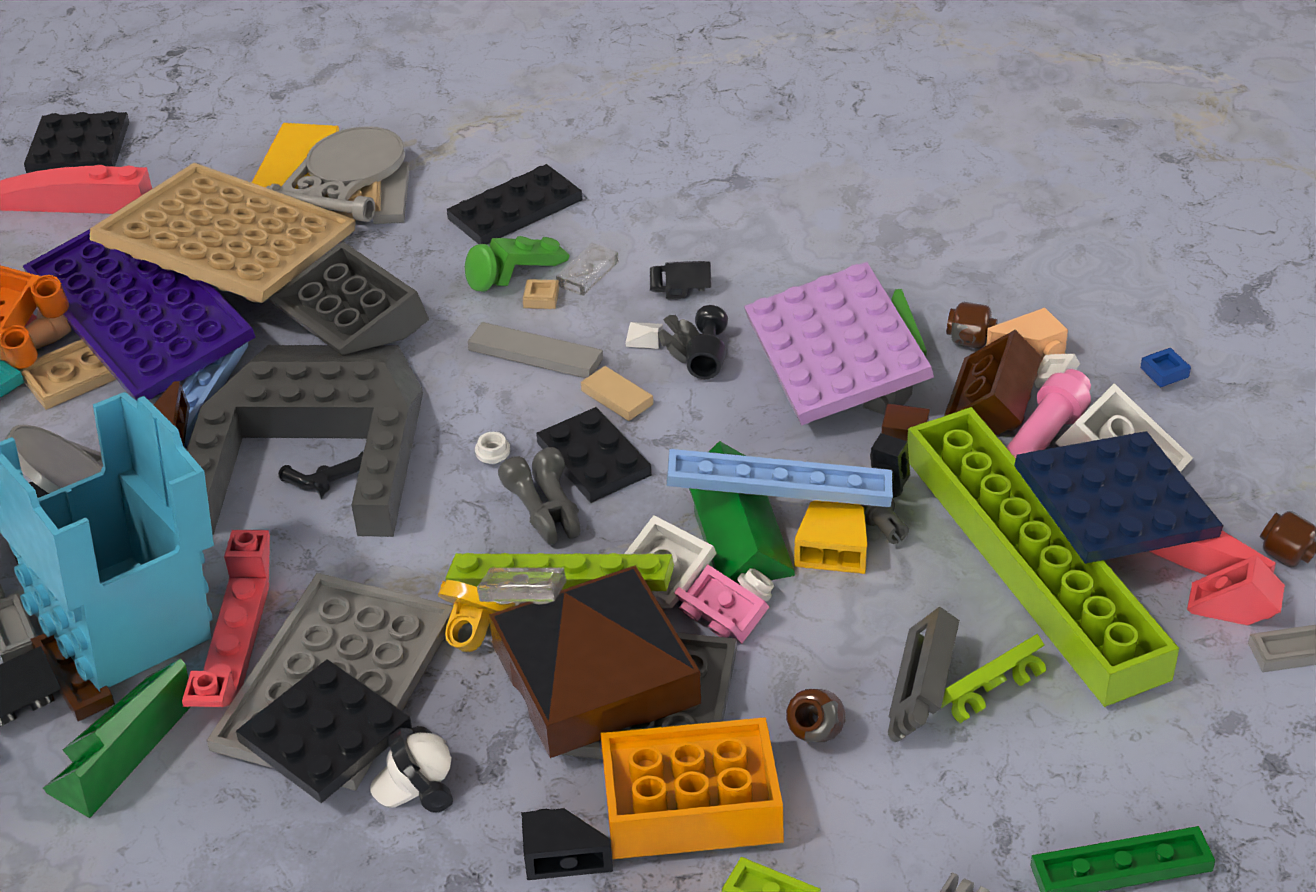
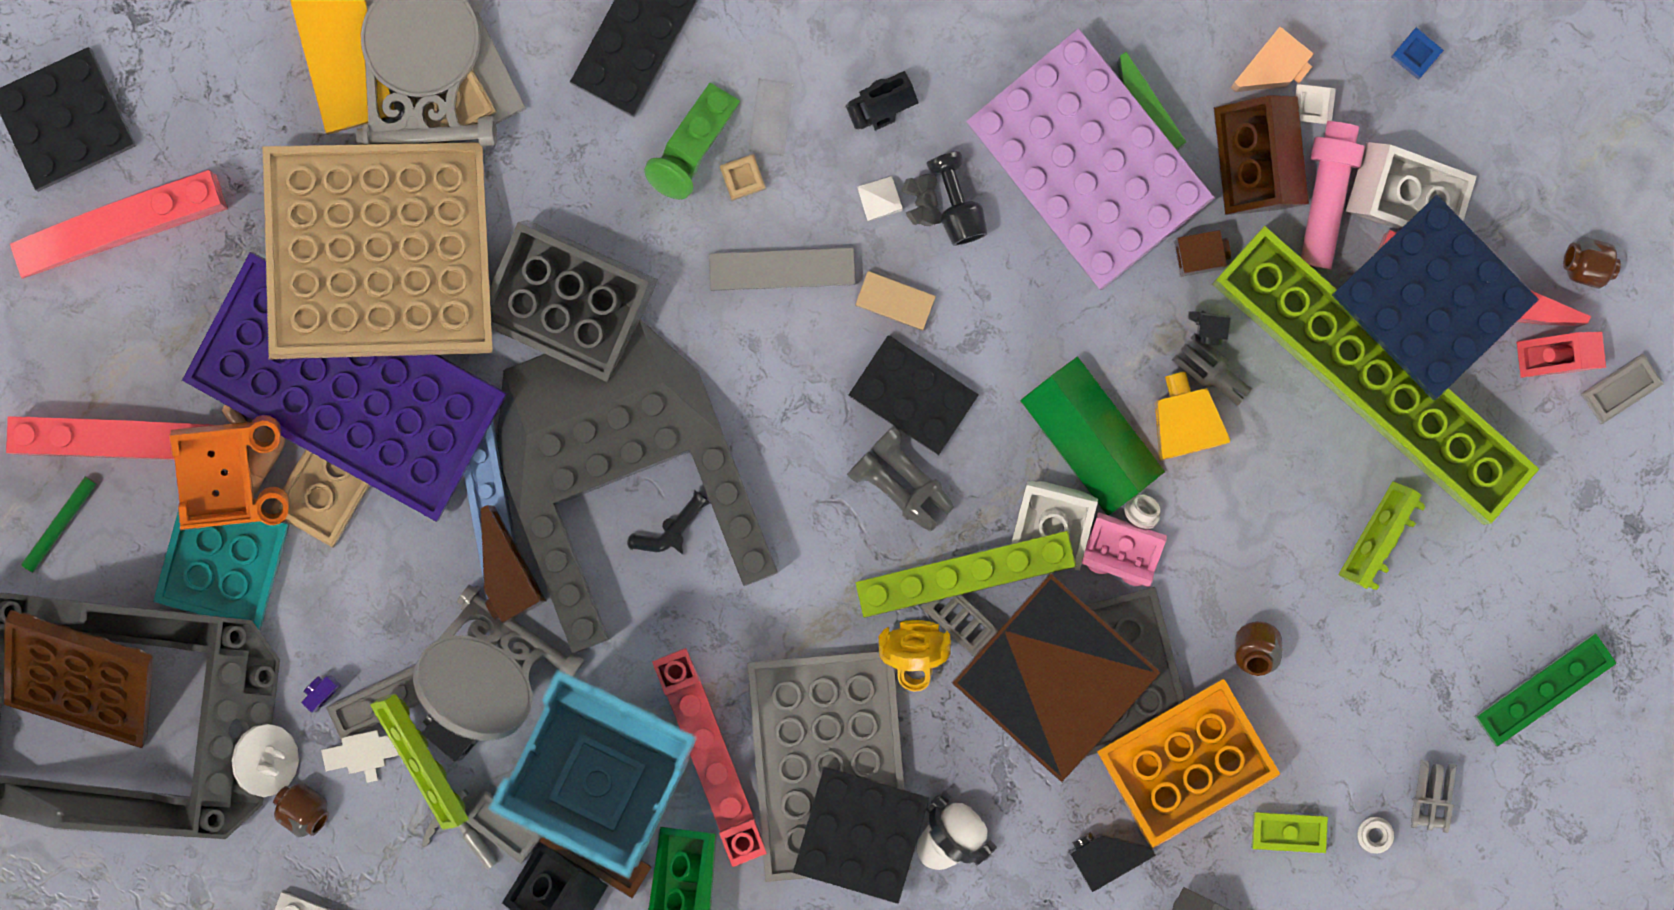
camera: 25 degrees left, 45 degrees up
(492, 448) = (819, 419): white plate -> none
(521, 585) = (969, 646): clear plate -> none
(779, 478) = (1128, 407): light blue plate -> none
(922, 673) = (1329, 567): dark grey hinge -> none
(970, 324) = (1210, 69): reddish brown head -> none

